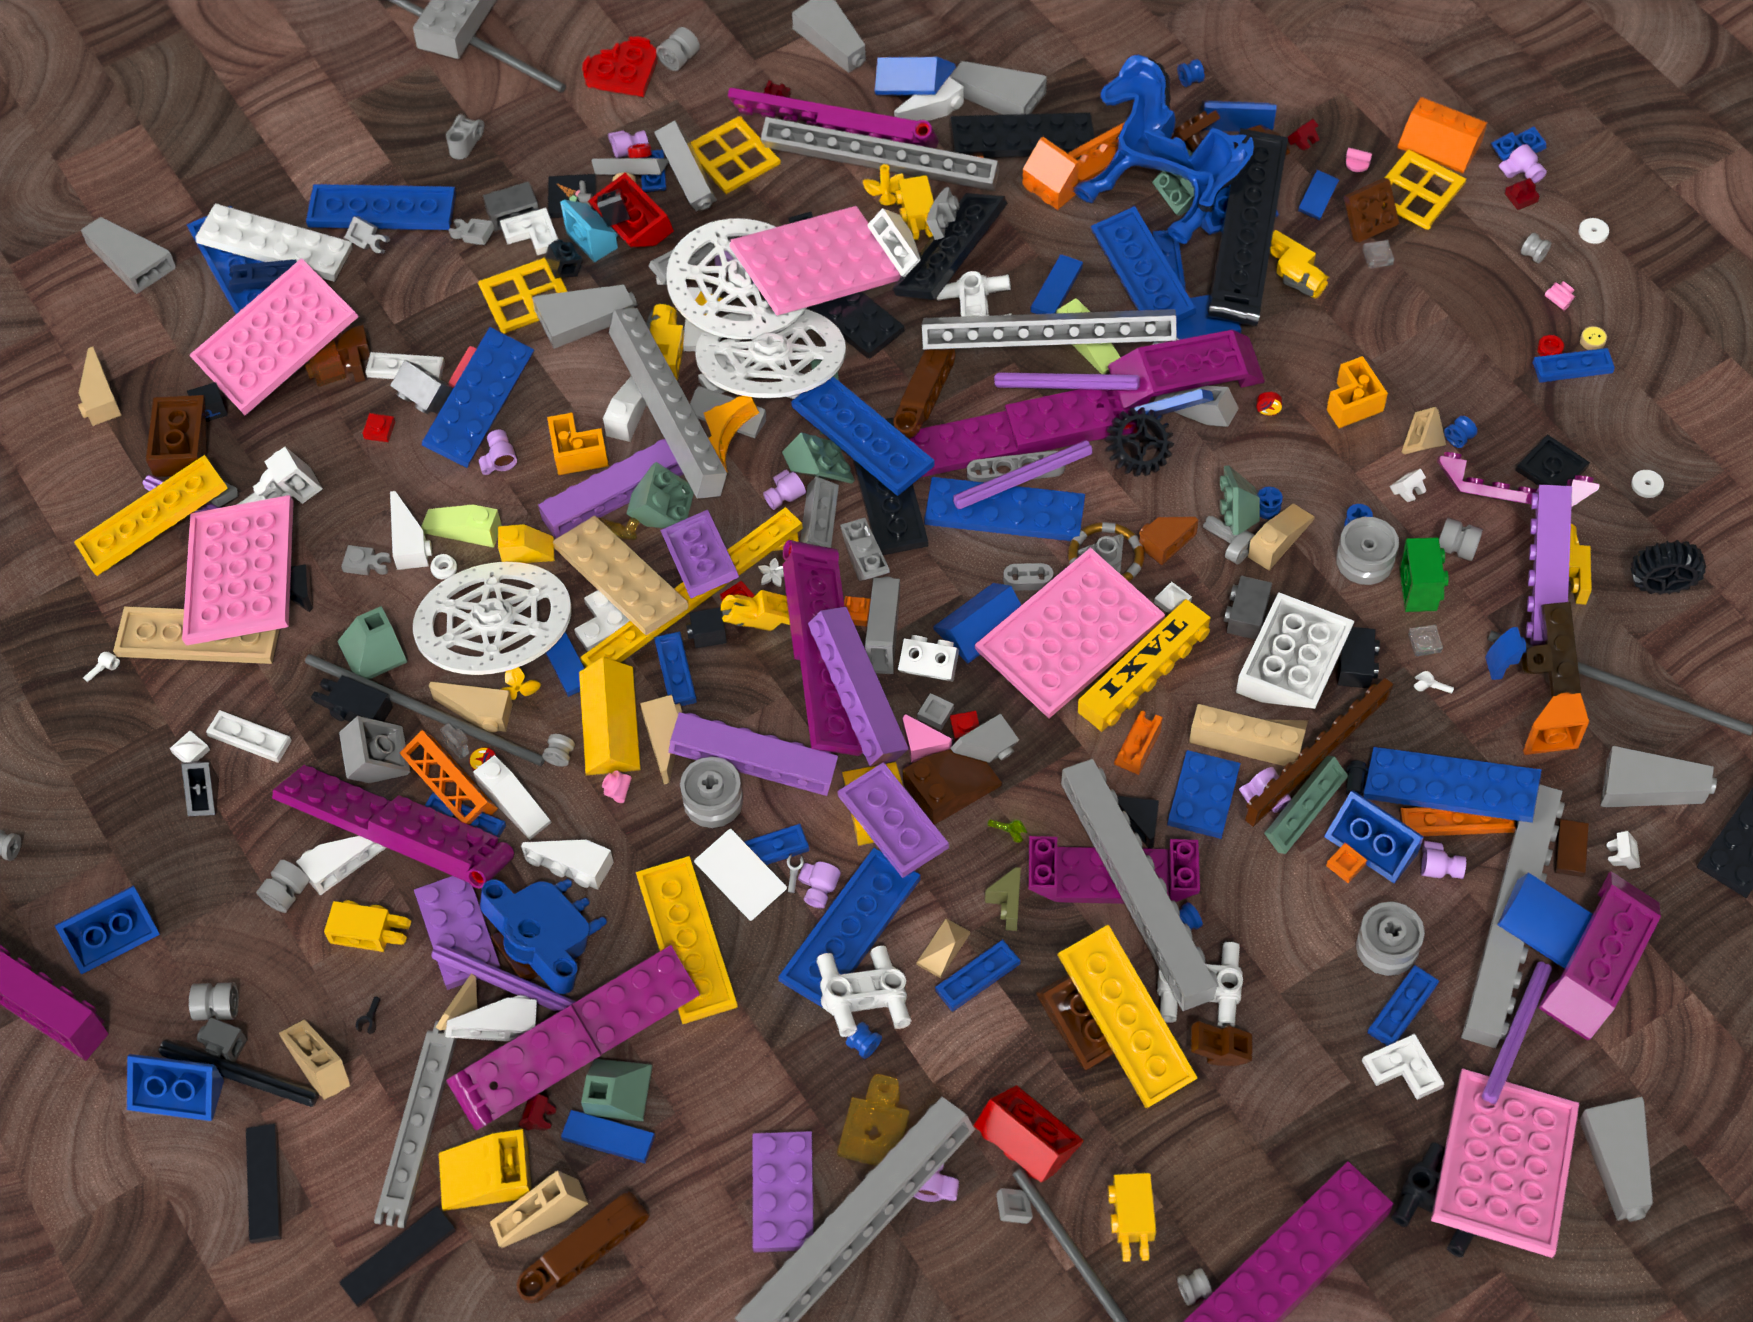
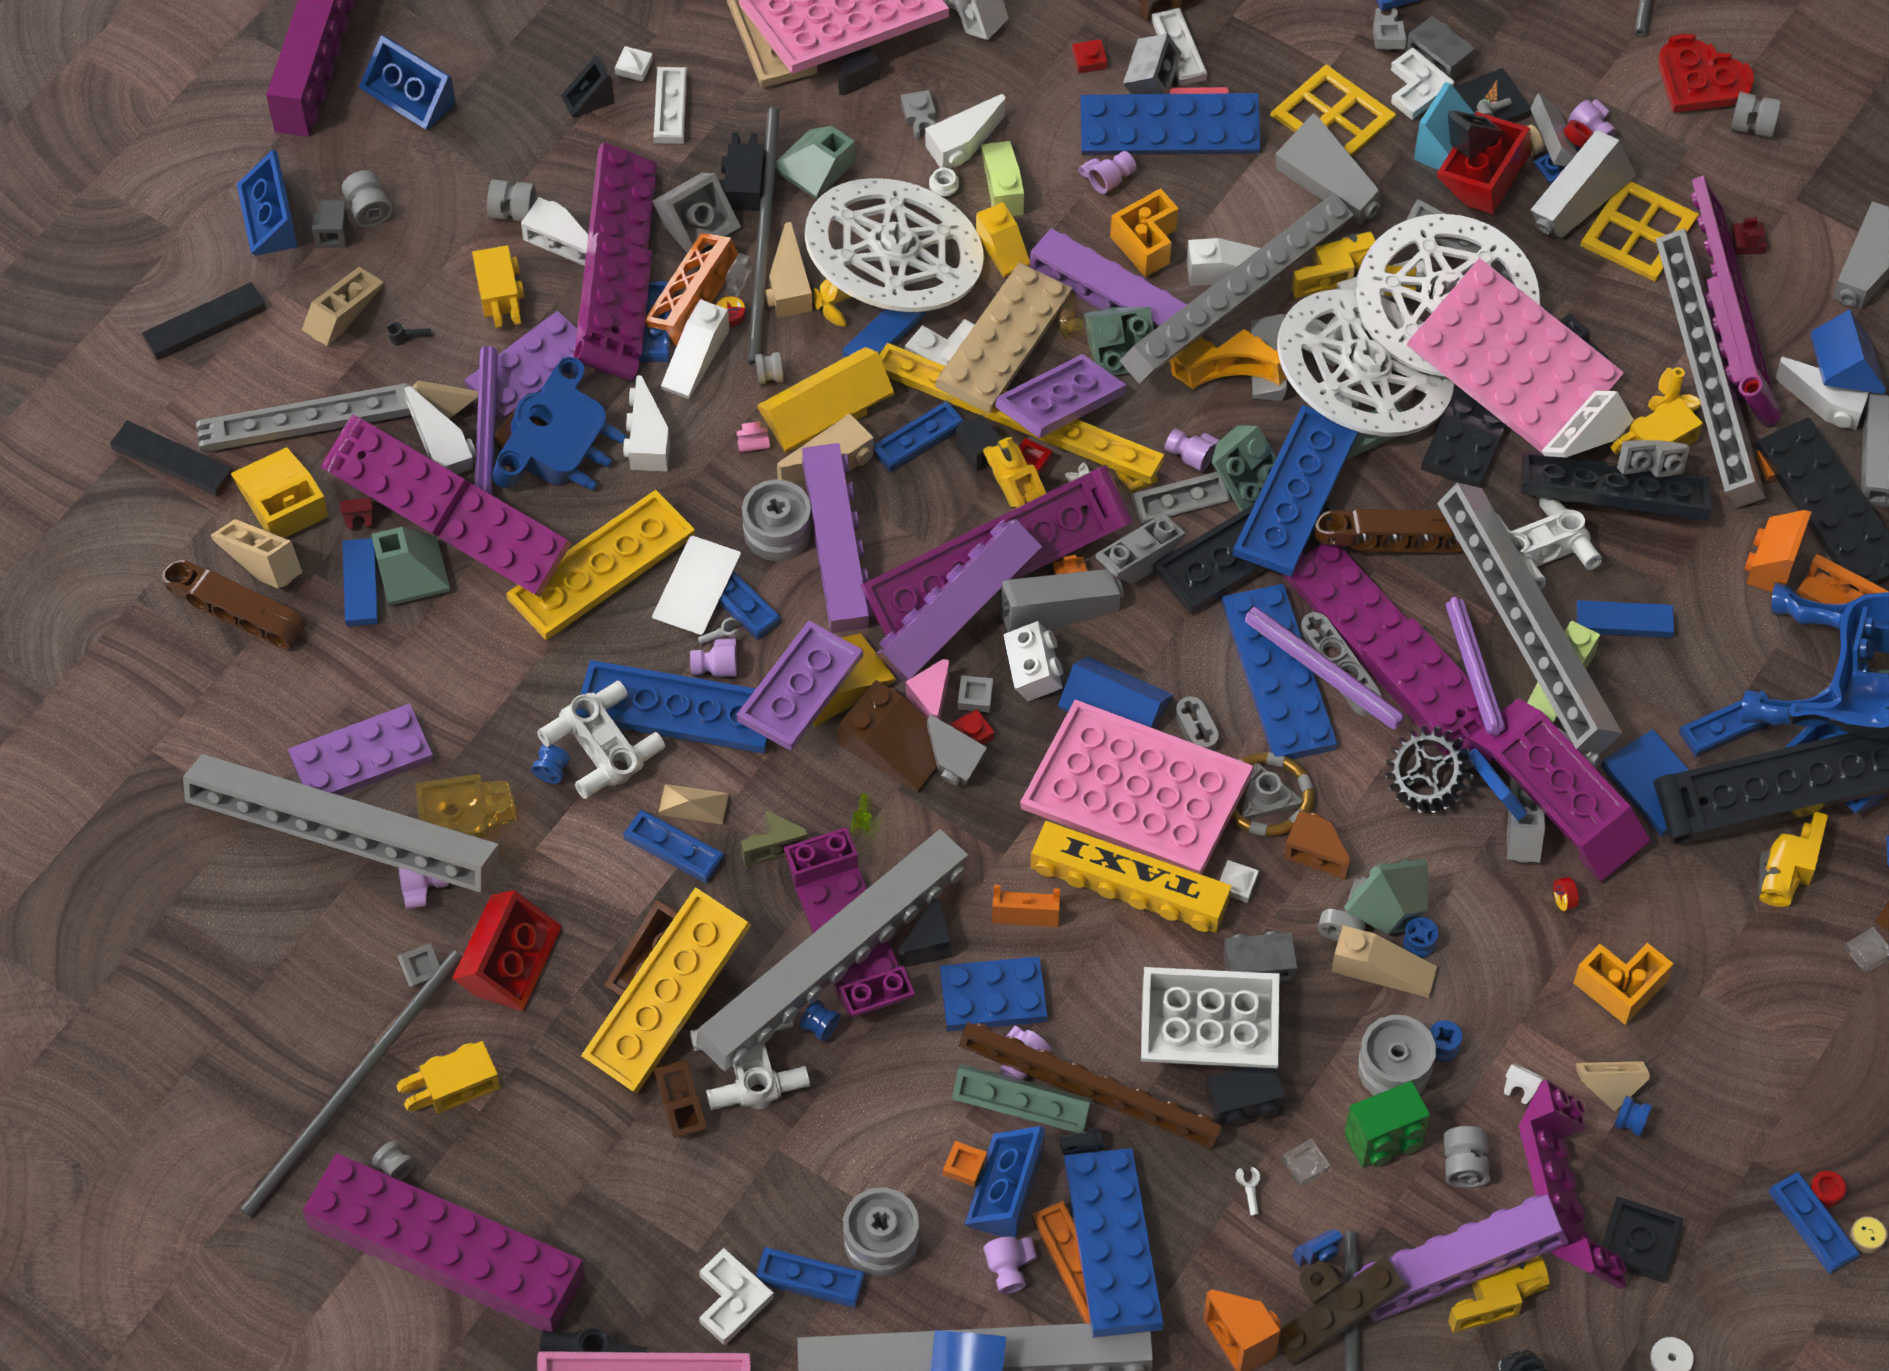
camera: 65 degrees right, 0 degrees up
(242, 1073) = (306, 250): black axle -> none
(560, 254) = (1392, 125): black brick -> none
(1141, 264) = (1693, 694): blue plate -> none
(1248, 736) = (1090, 1020): tan wedge -> none

